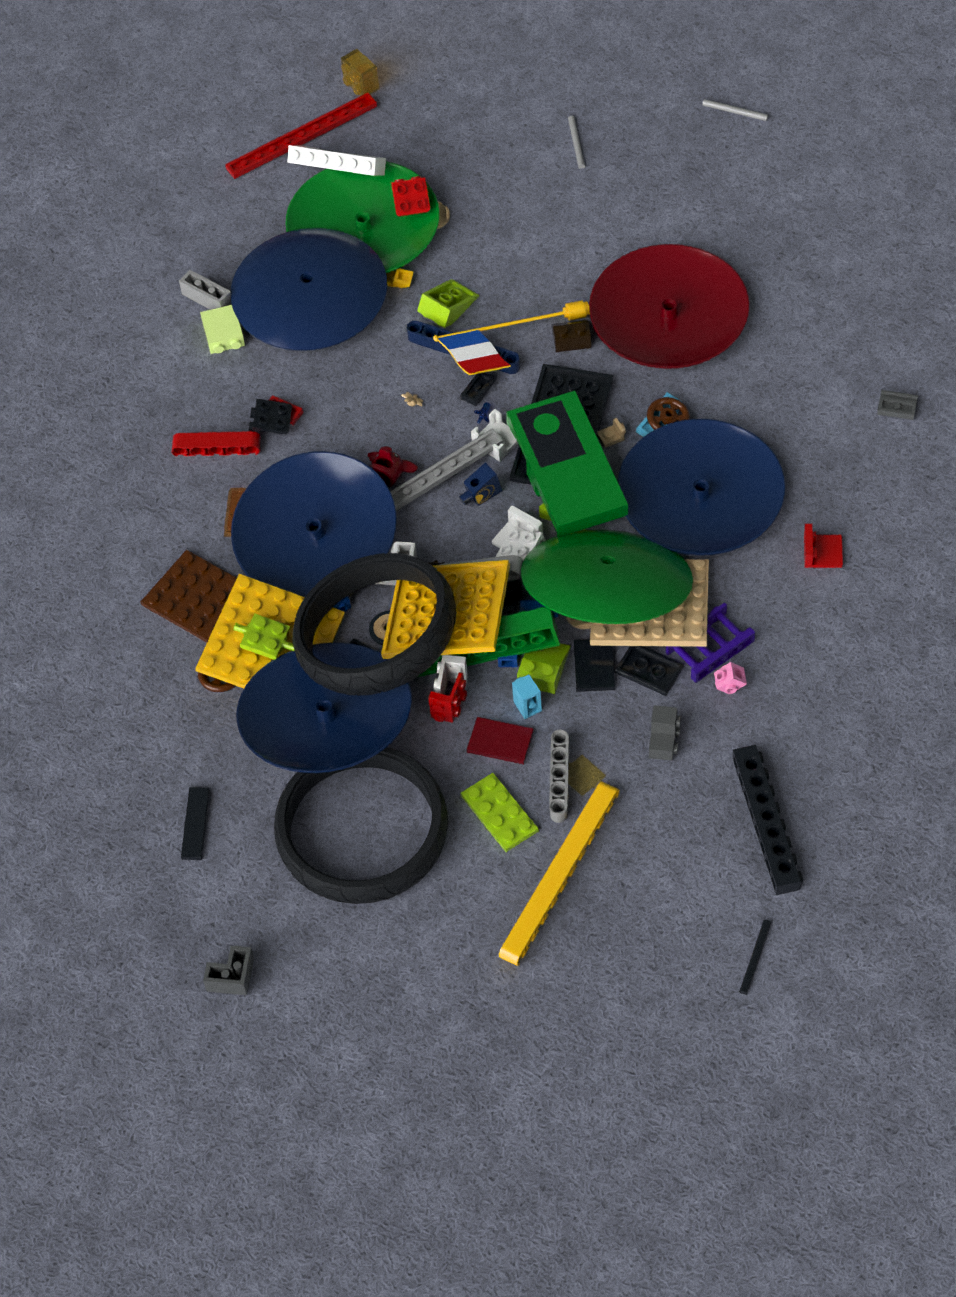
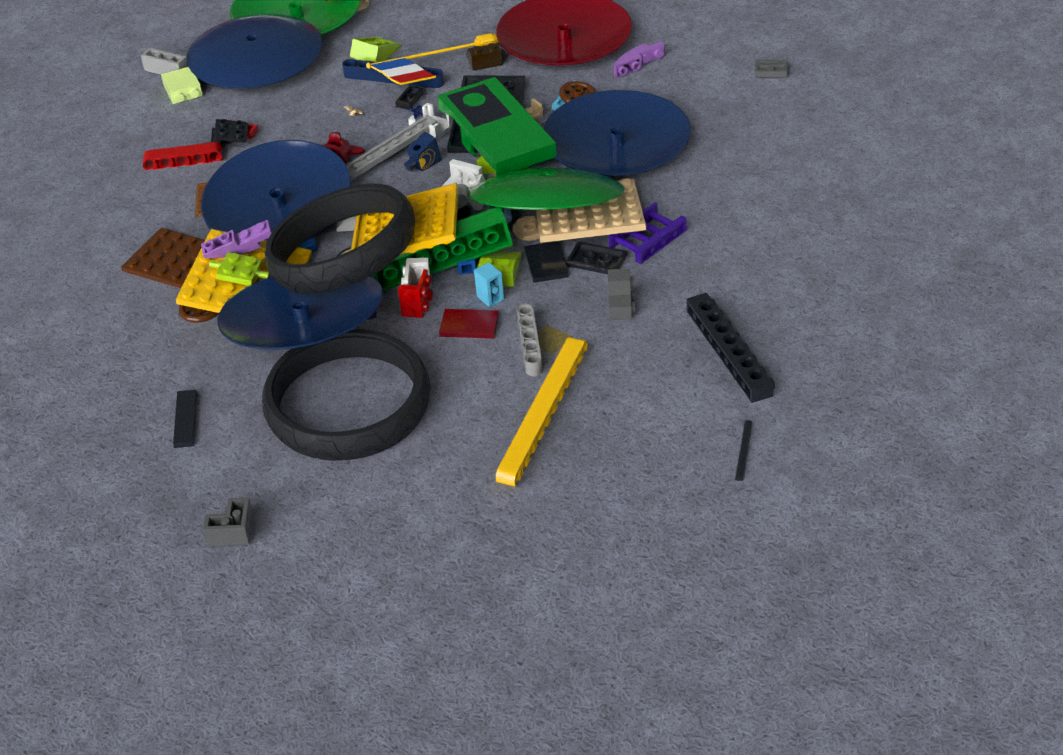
camera: 10 degrees left, 15 degrees down
(265, 602) = (237, 243): none -> medium lavender slope
(400, 278) = (333, 40): yellow slope -> none
(499, 812) = (477, 374): lime plate -> none
(730, 678) = (671, 252): bright pink brick -> none
(739, 368) = (637, 56): none -> medium lavender slope
(822, 550) = (730, 164): red bracket -> none

